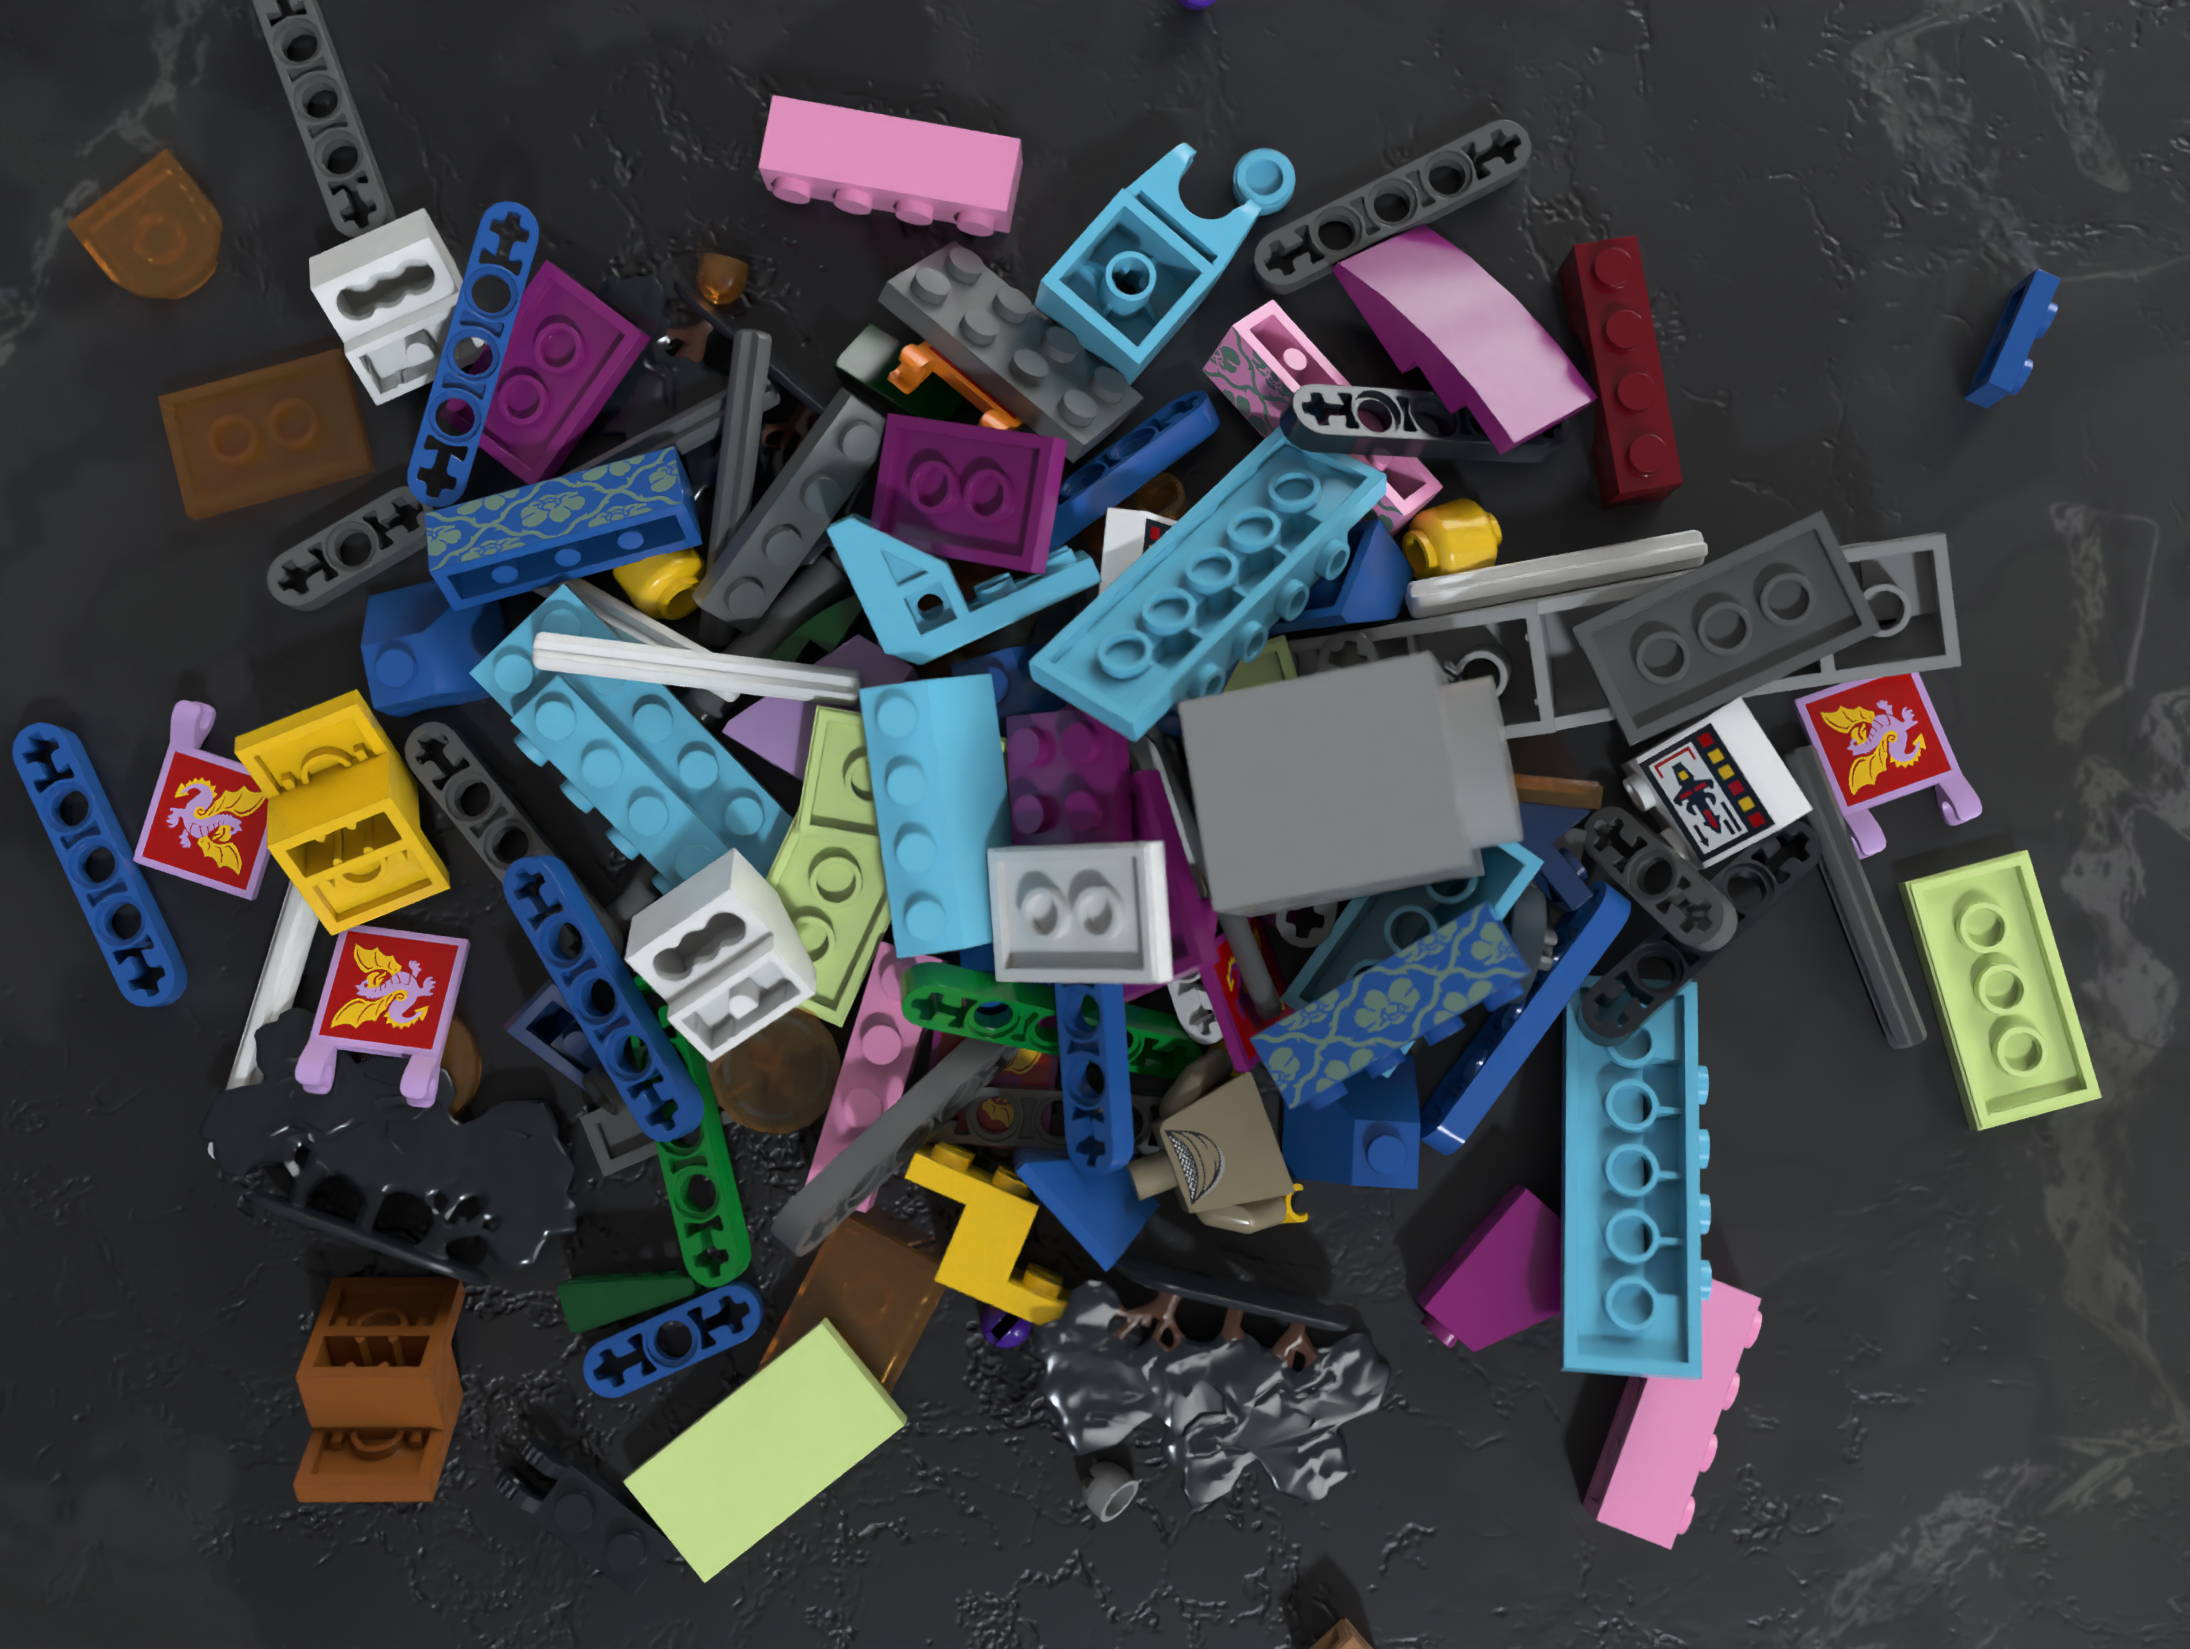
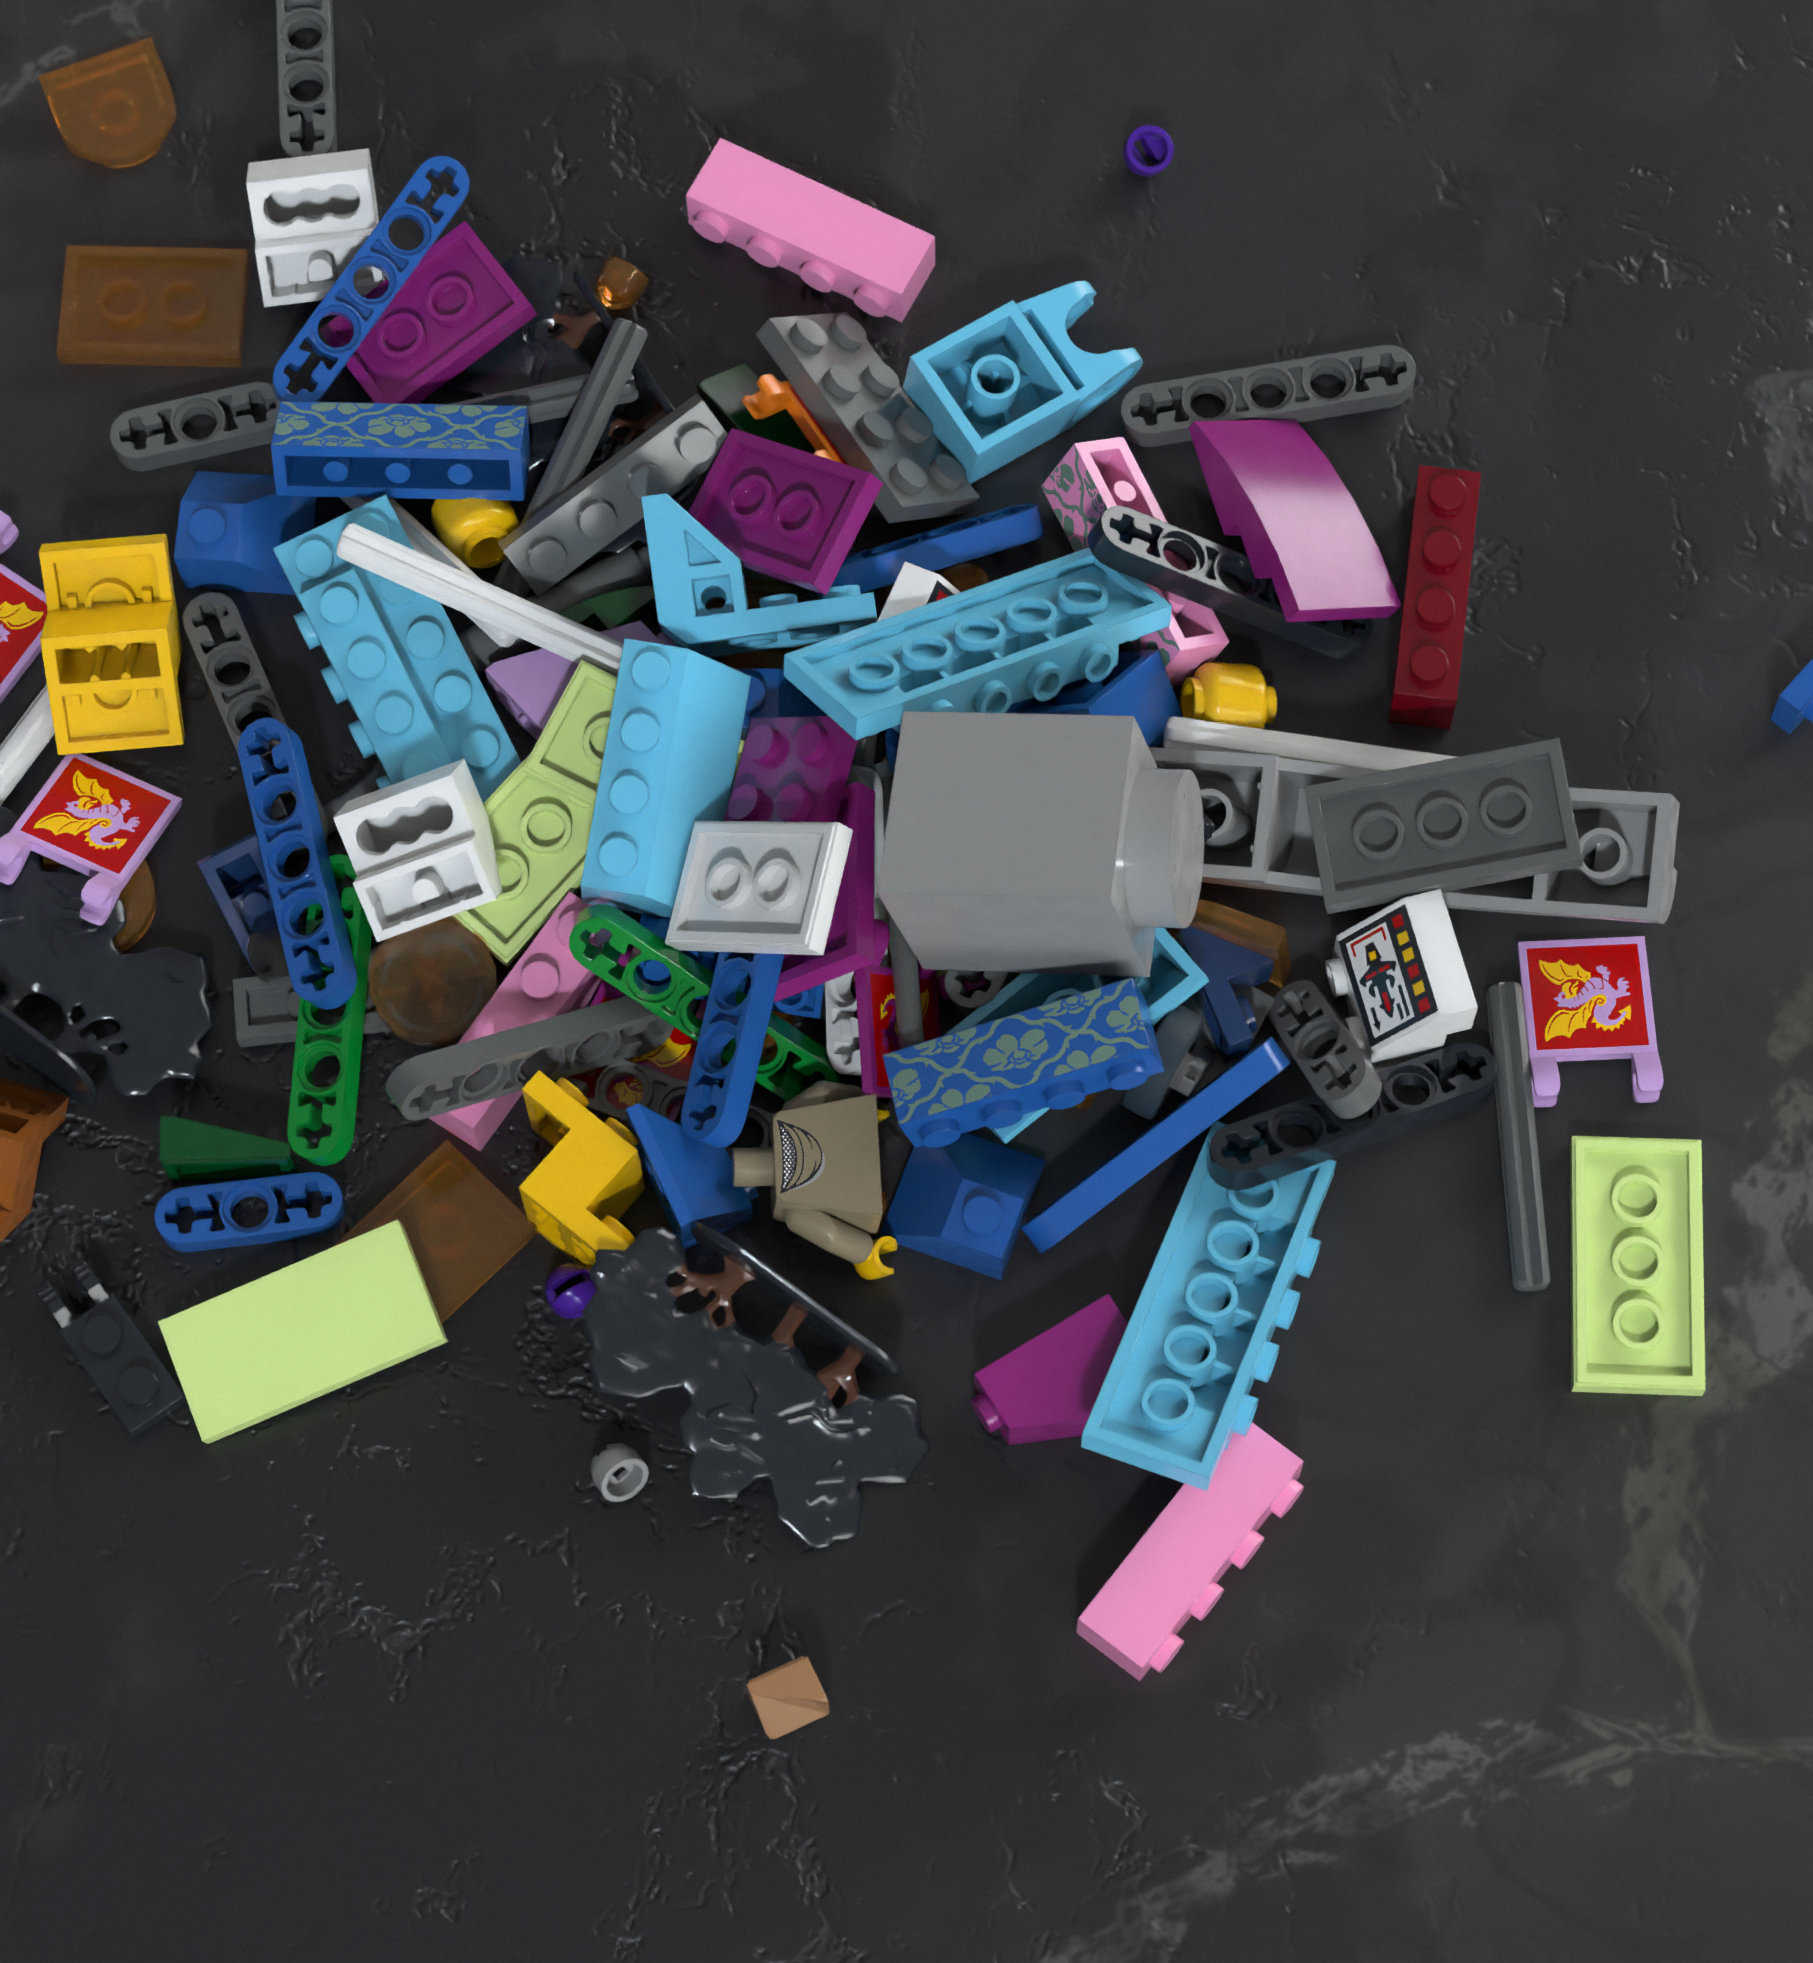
camera: 15 degrees right, 15 degrees down
(1265, 178) = (1157, 339): medium azure tile -> none

